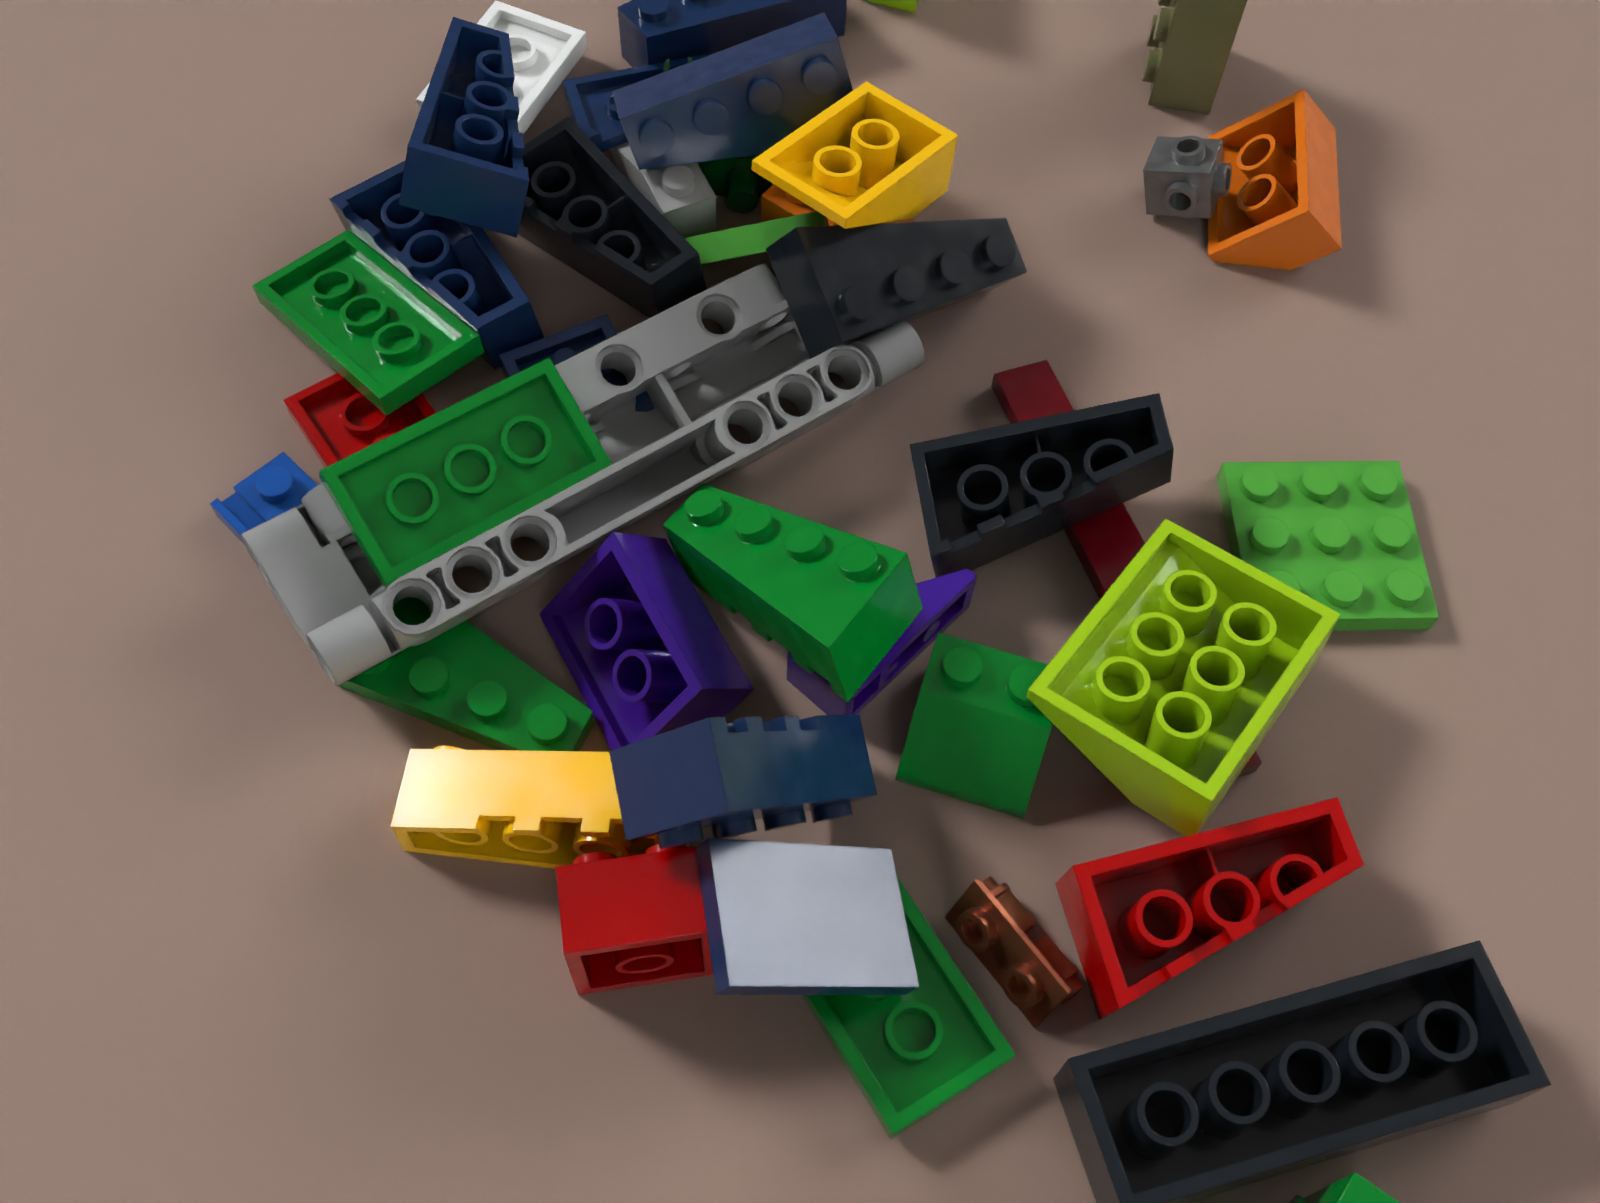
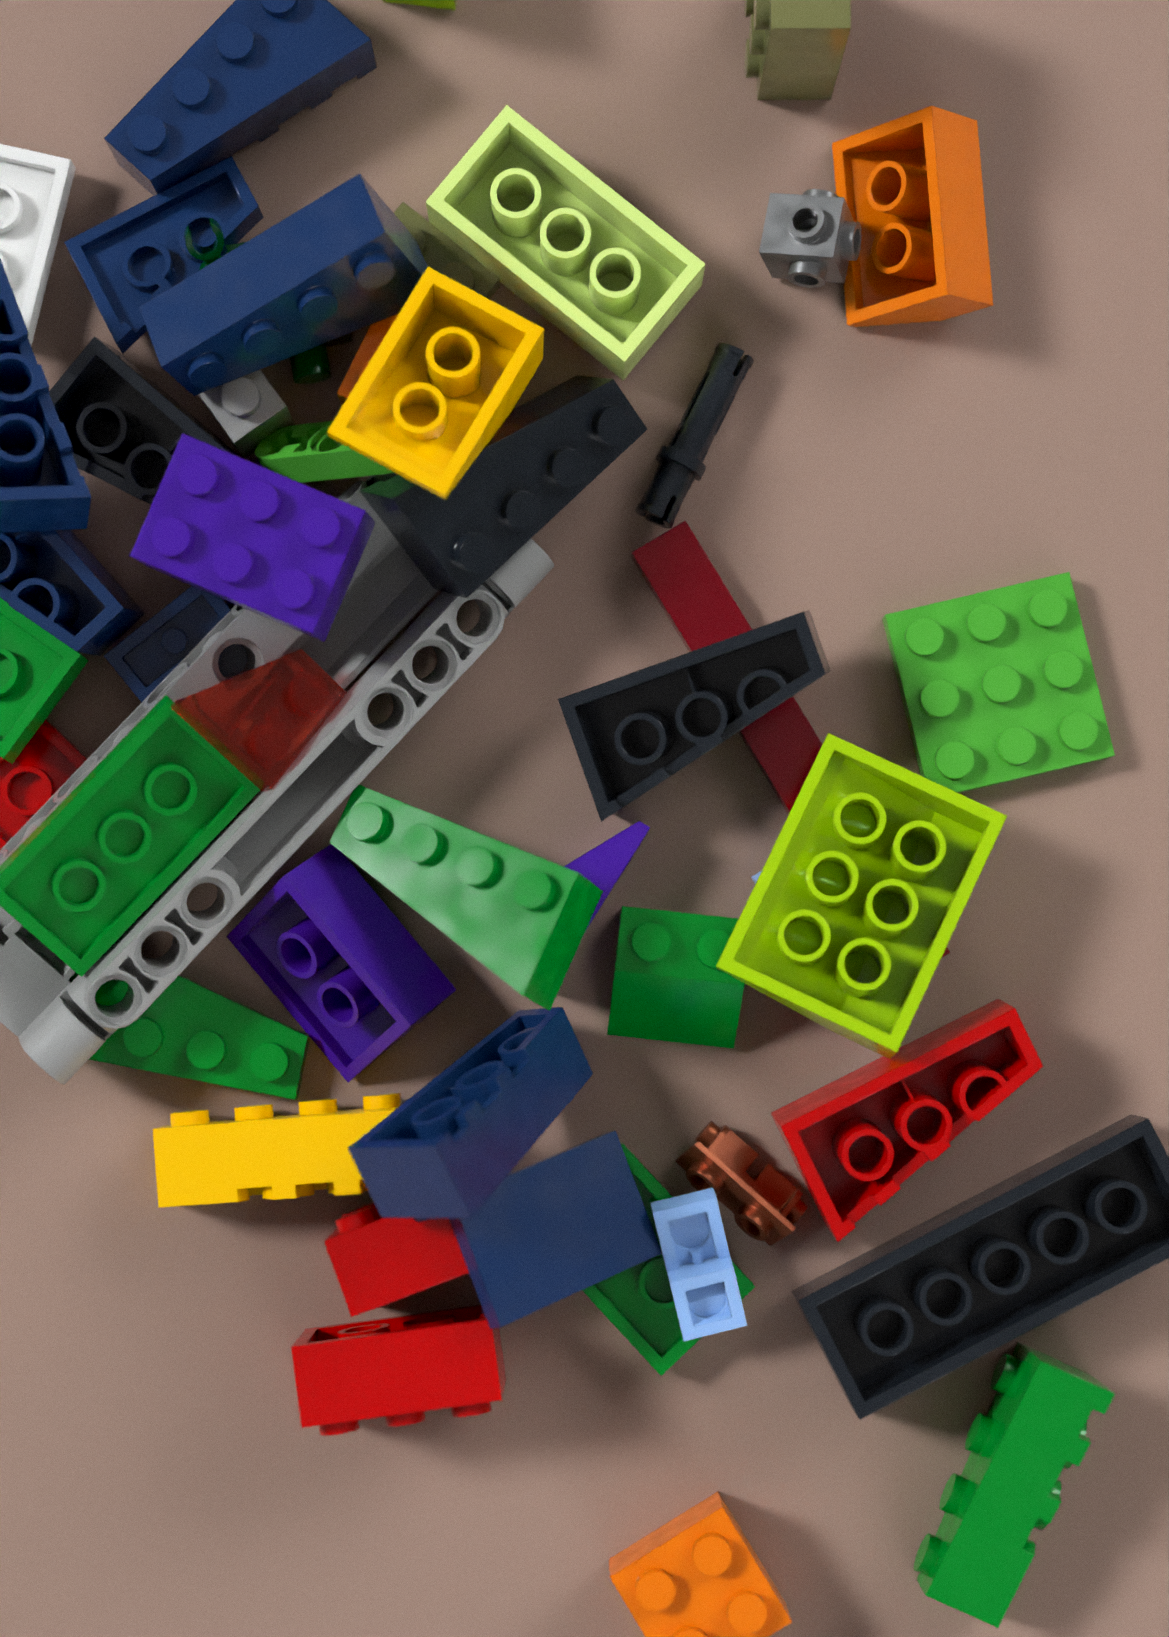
camera: 10 degrees left, 25 degrees up
(599, 1046) = (398, 1369): none -> red brick
(627, 399) = (264, 714): none -> clear red wing
(663, 255) = (253, 537): none -> dark purple brick
(958, 1011) = (698, 1264): none -> light blue slope
(1007, 151) = (565, 242): none -> yellowish green brick
(1053, 314) = (684, 456): none -> black pin

